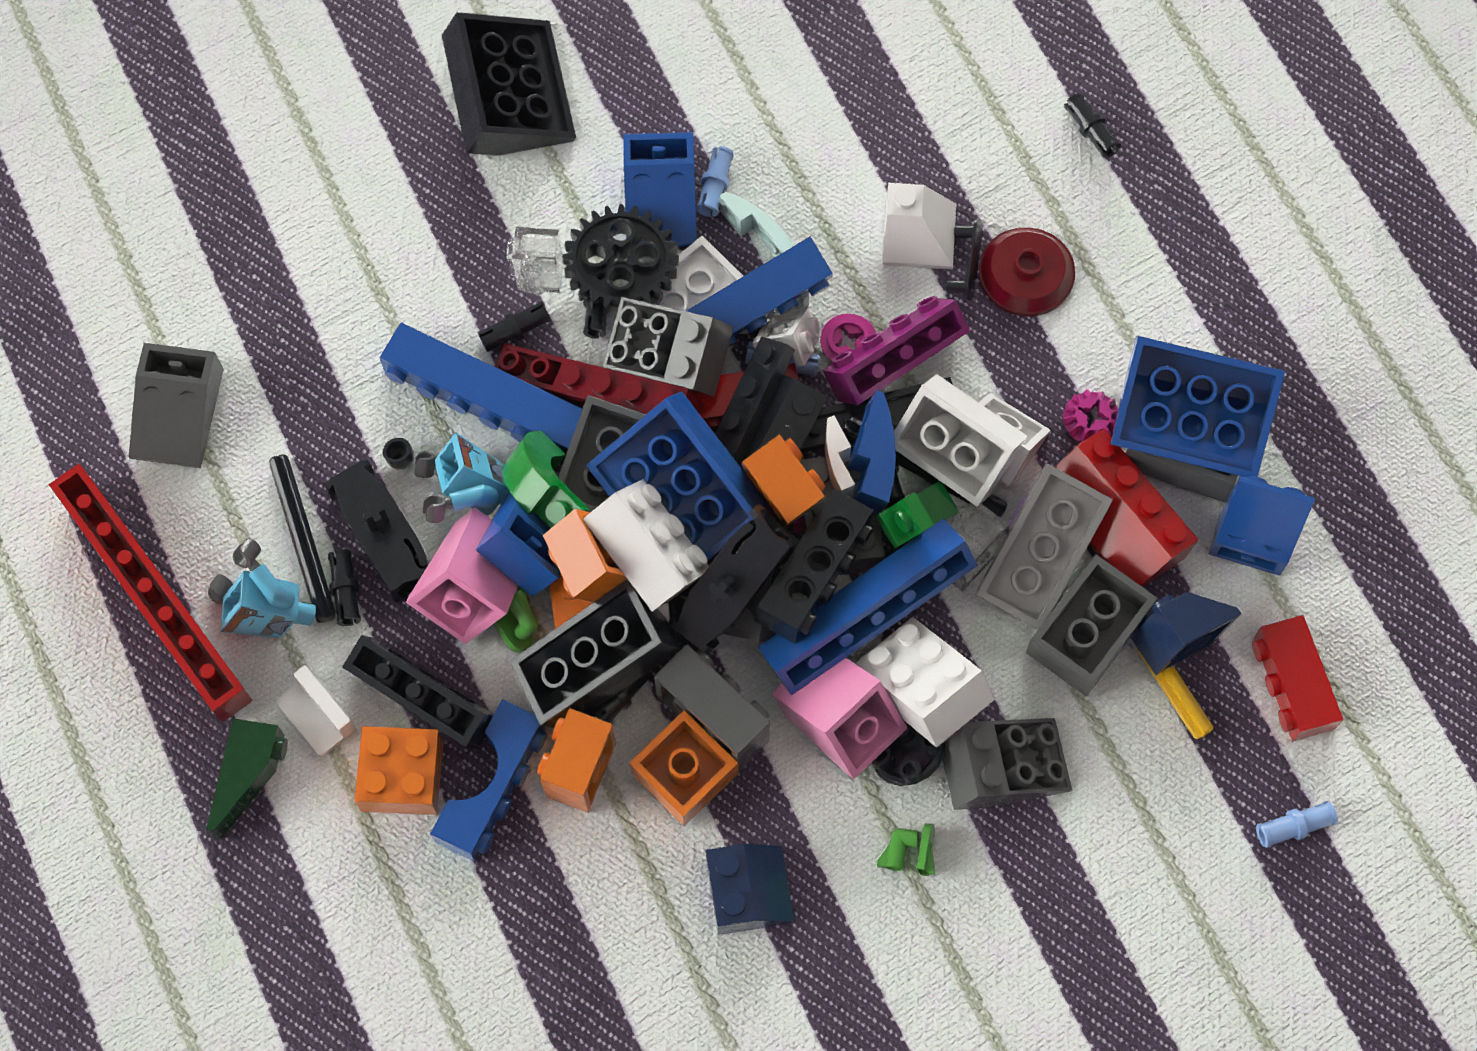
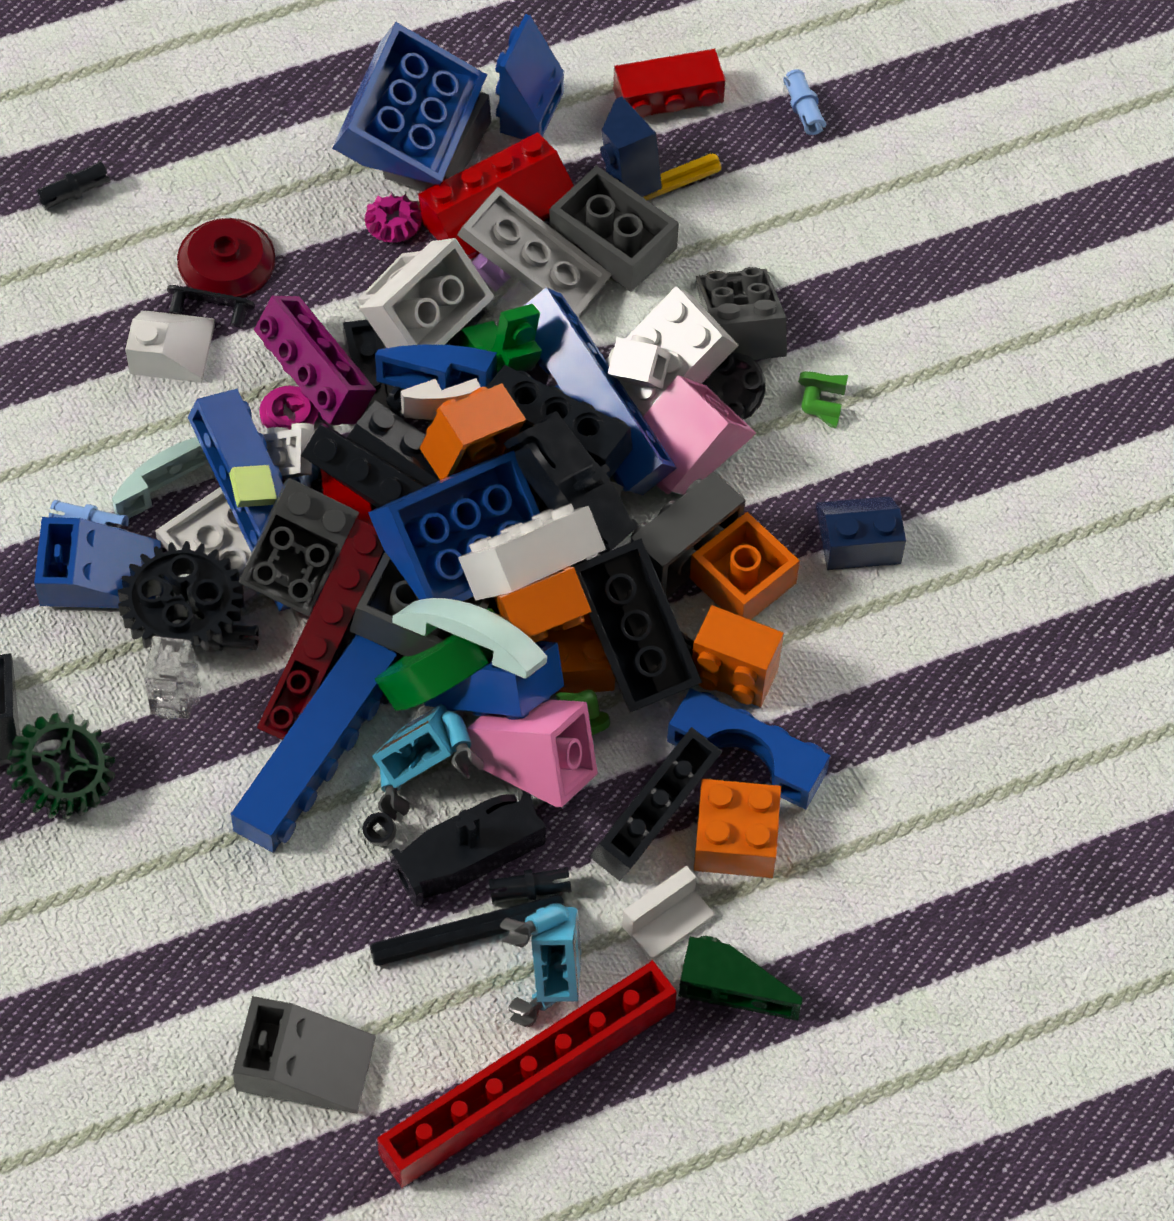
camera: 90 degrees left, 10 degrees down
(449, 197) = (92, 768): none -> dark green gear
(514, 326) = (238, 716): black pin -> none
(548, 495) = (510, 646): none -> light aqua slope
(724, 297) = (252, 486): none -> yellowish green tile
(892, 643) = (639, 362): none -> white brick

